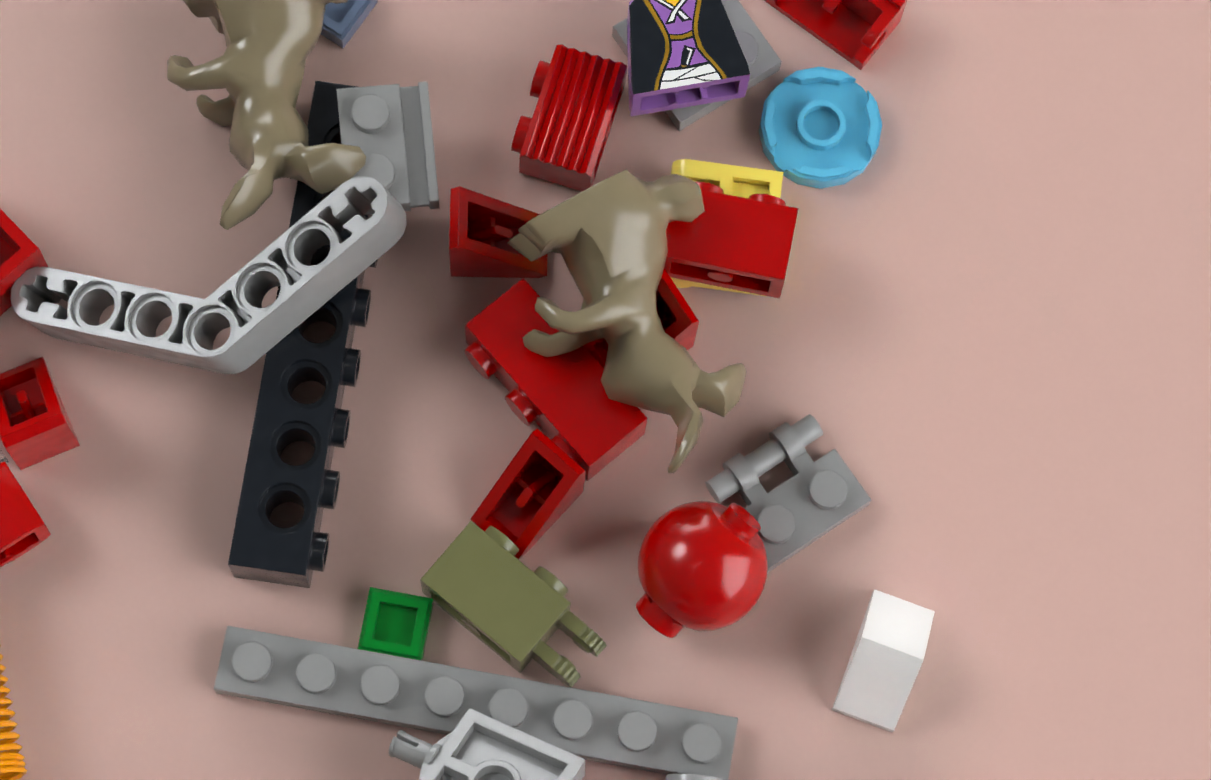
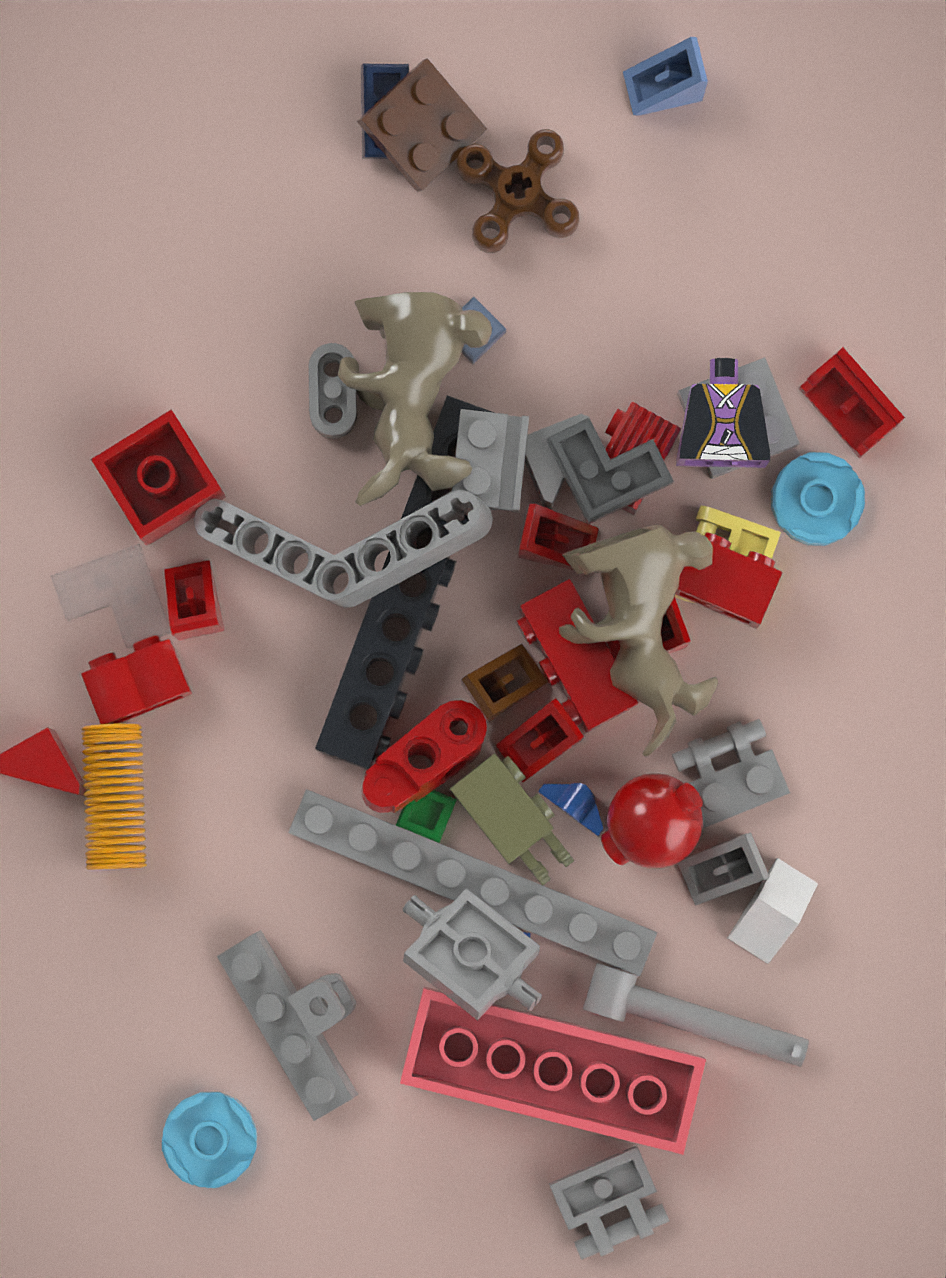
camera: 20 degrees right, 10 degrees up
(164, 114) = (330, 393): none -> light grey plate
(348, 586) = (395, 782): none -> red piece
(461, 435) = (503, 682): none -> reddish brown slope
(467, 131) = (542, 463): none -> light grey slope
(538, 148) = (605, 483): none -> dark grey tile
(592, 571) = (576, 802): none -> blue piece
(808, 613) = (723, 869): none -> light grey slope

